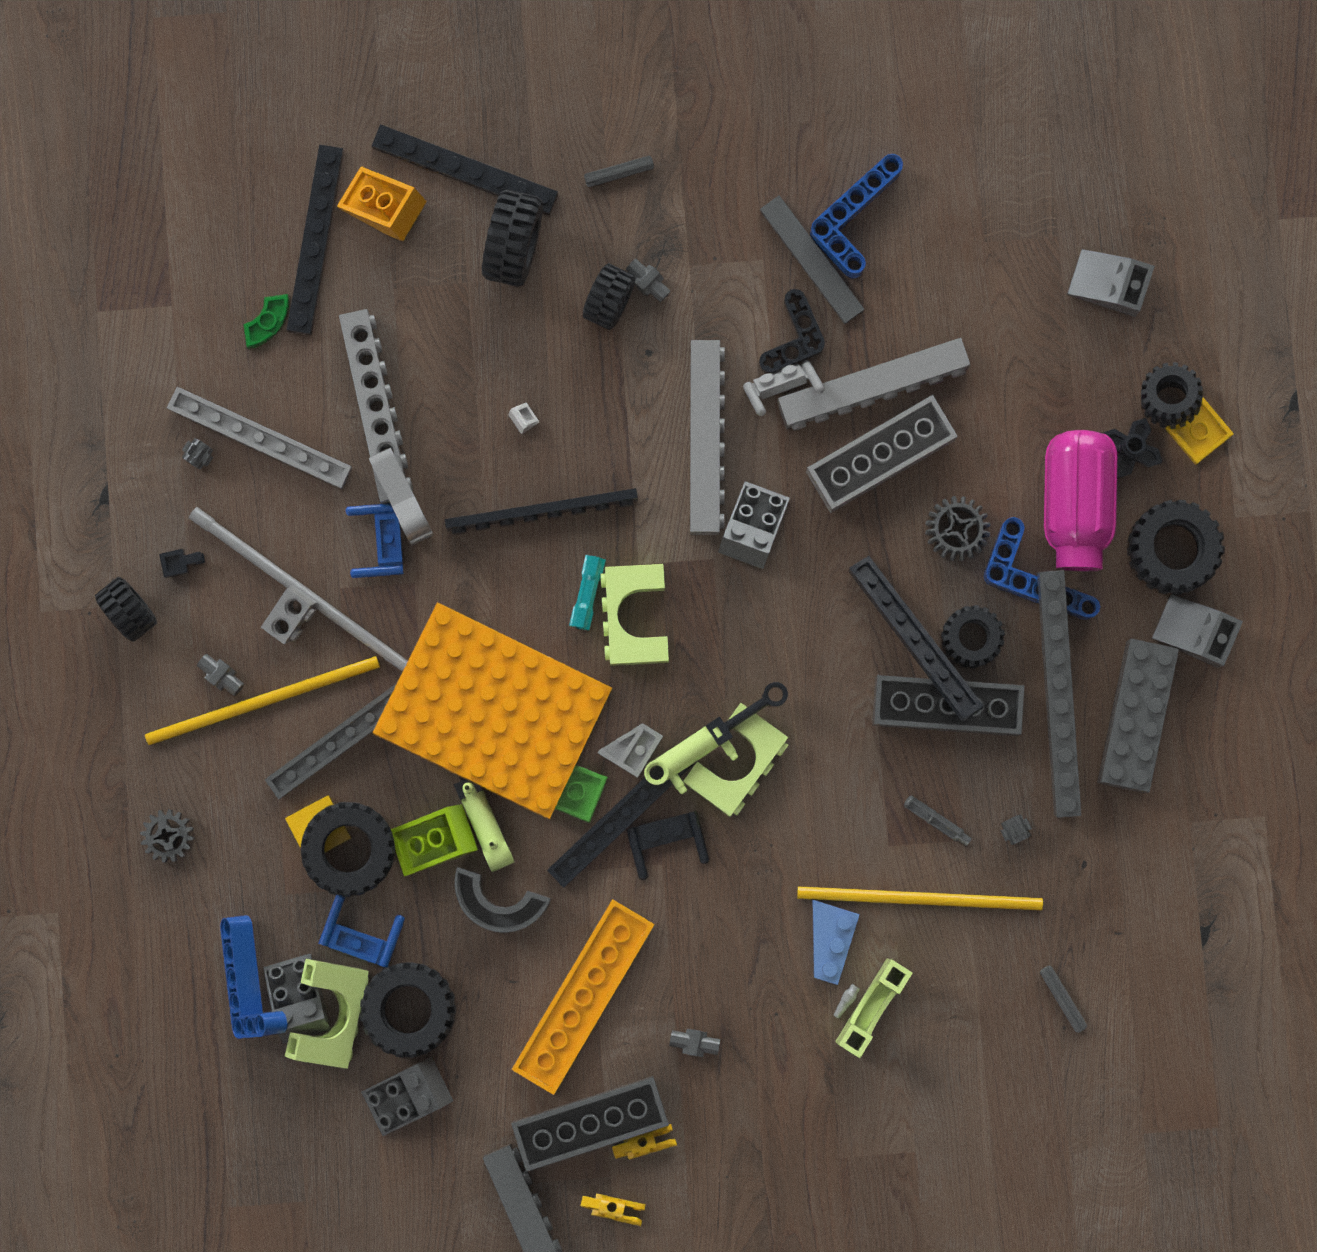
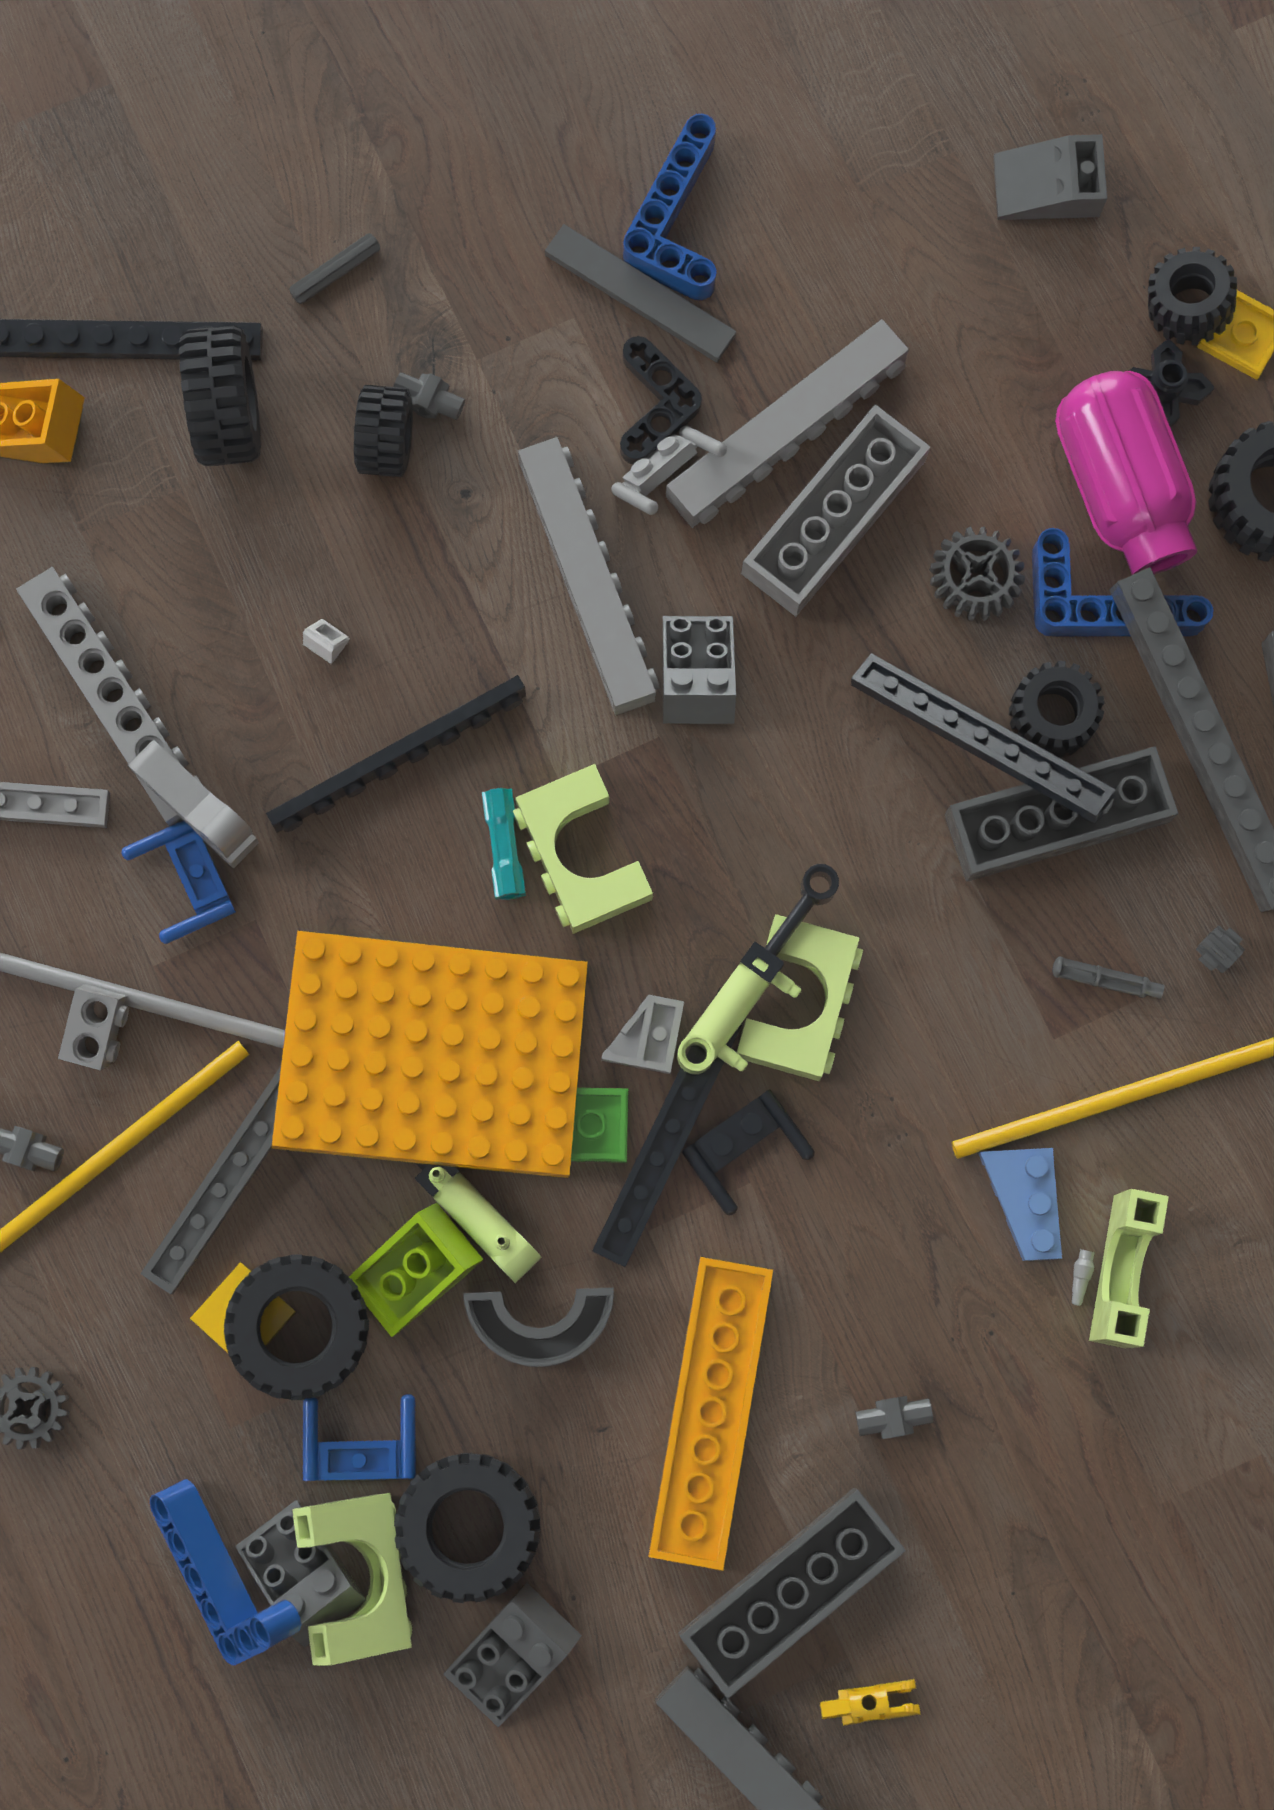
camera: 25 degrees left, 5 degrees down
(632, 1148) = (866, 1606): yellow hinge -> none

